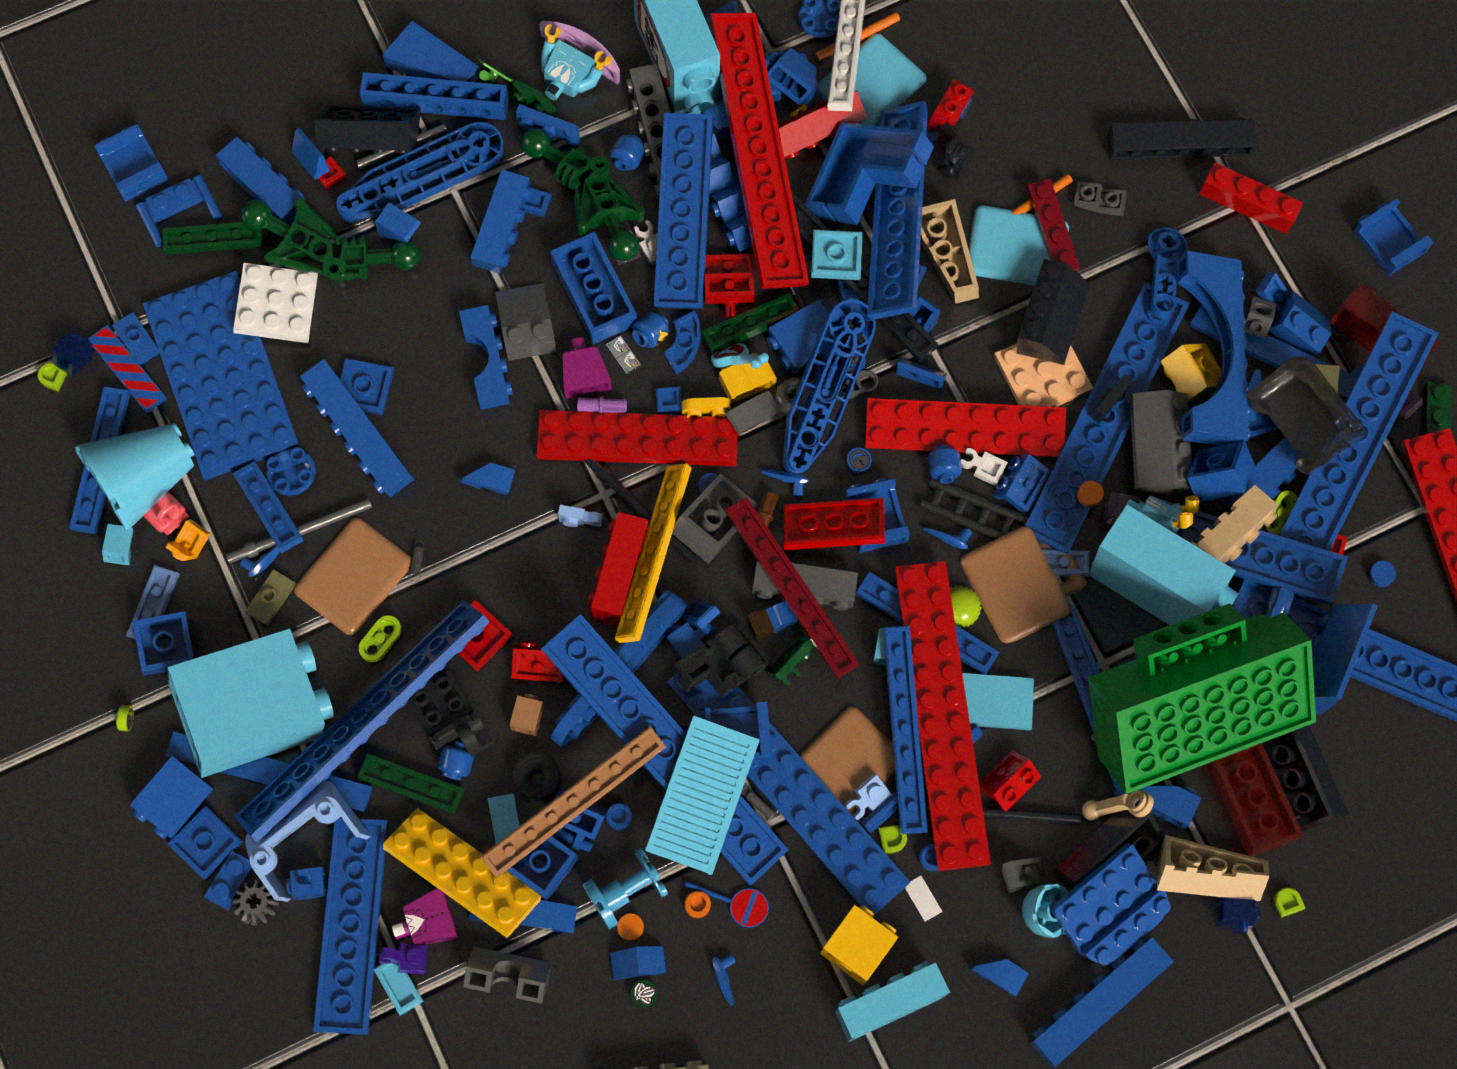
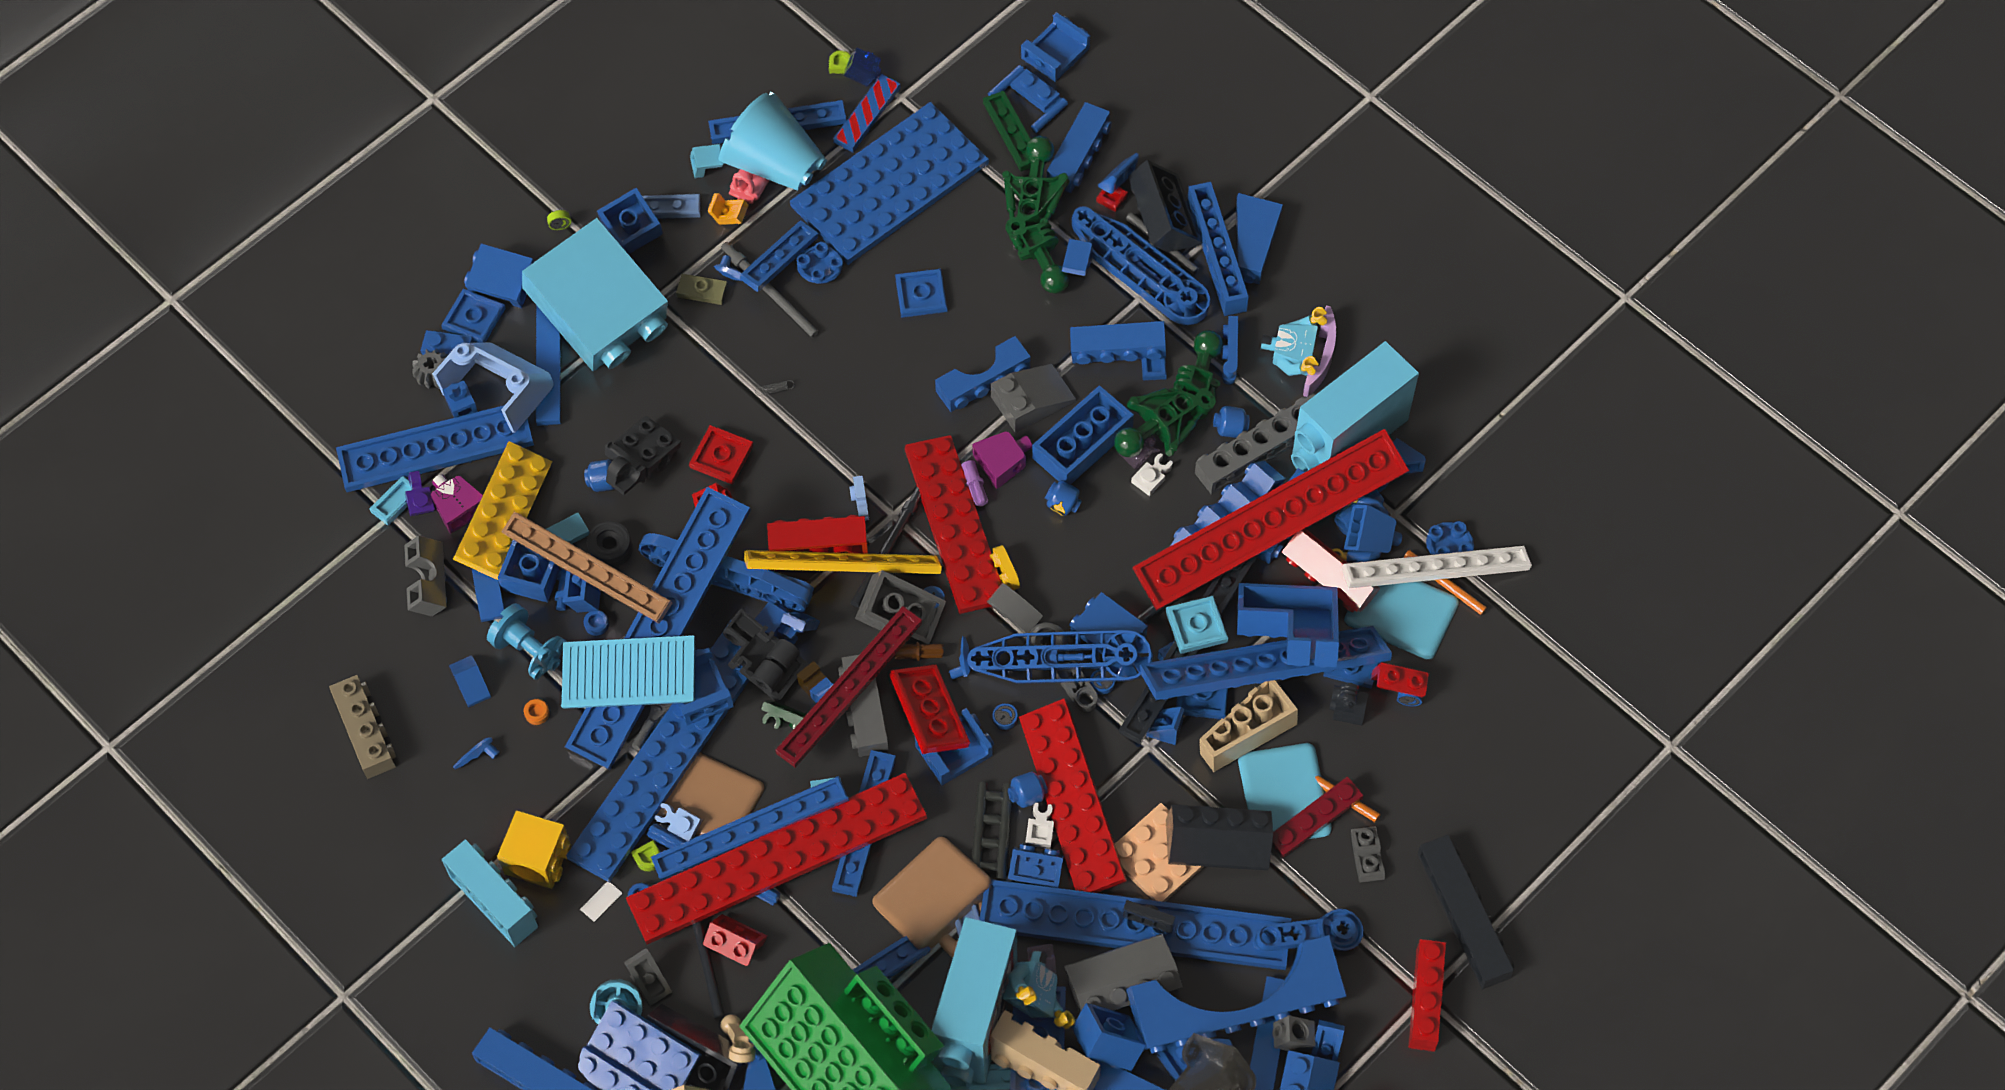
camera: 75 degrees right, 10 degrees down
(136, 338) = (897, 109): blue plate -> none
(275, 303) = (968, 197): white plate -> none
(353, 576) = (745, 345): medium nougat piece -> none
(356, 428) = (876, 297): blue brick -> none
(361, 720) = (612, 387): blue plate -> none
(378, 638) = (694, 382): lime plate -> none
(411, 784) = (571, 450): dark green plate -> none
(490, 77) = (1265, 285): bright green shield -> none
(491, 477) = (872, 418): blue slope -> none
(527, 714) = (662, 517): medium nougat brick -> none
(531, 98) = (1250, 331): dark green slope -> none
(623, 354) = (1034, 487): light grey sticker -> none
(630, 927) = (499, 663): orange tile -> none
(643, 993) = (443, 693): tile -> none
(668, 400) = (1004, 536): blue tile -> none
(683, 211) = (1186, 481): blue plate -> none
(685, 343) = (1065, 533): blue tile -> none
(729, 281) = (1135, 544): red plate -> none
(737, 355) = (1061, 574): medium azure piece -> none
(743, 380) = (1048, 593): yellow brick -> none
(747, 906) = (547, 754): piece -> none
(748, 323) = (1103, 578): dark green plate -> none
(920, 373) = (1115, 744): blue slope -> none
(957, 541) = (956, 827): blue bar -> none
(965, 606) = (893, 851): lime hat -> none
(999, 701) = (810, 908): medium azure tile -> none
(1002, 973) = (548, 988): blue slope -> none
(1090, 493) = (1044, 927): orange tile -> none
(1193, 370) = (1215, 988): yellow slope -> none

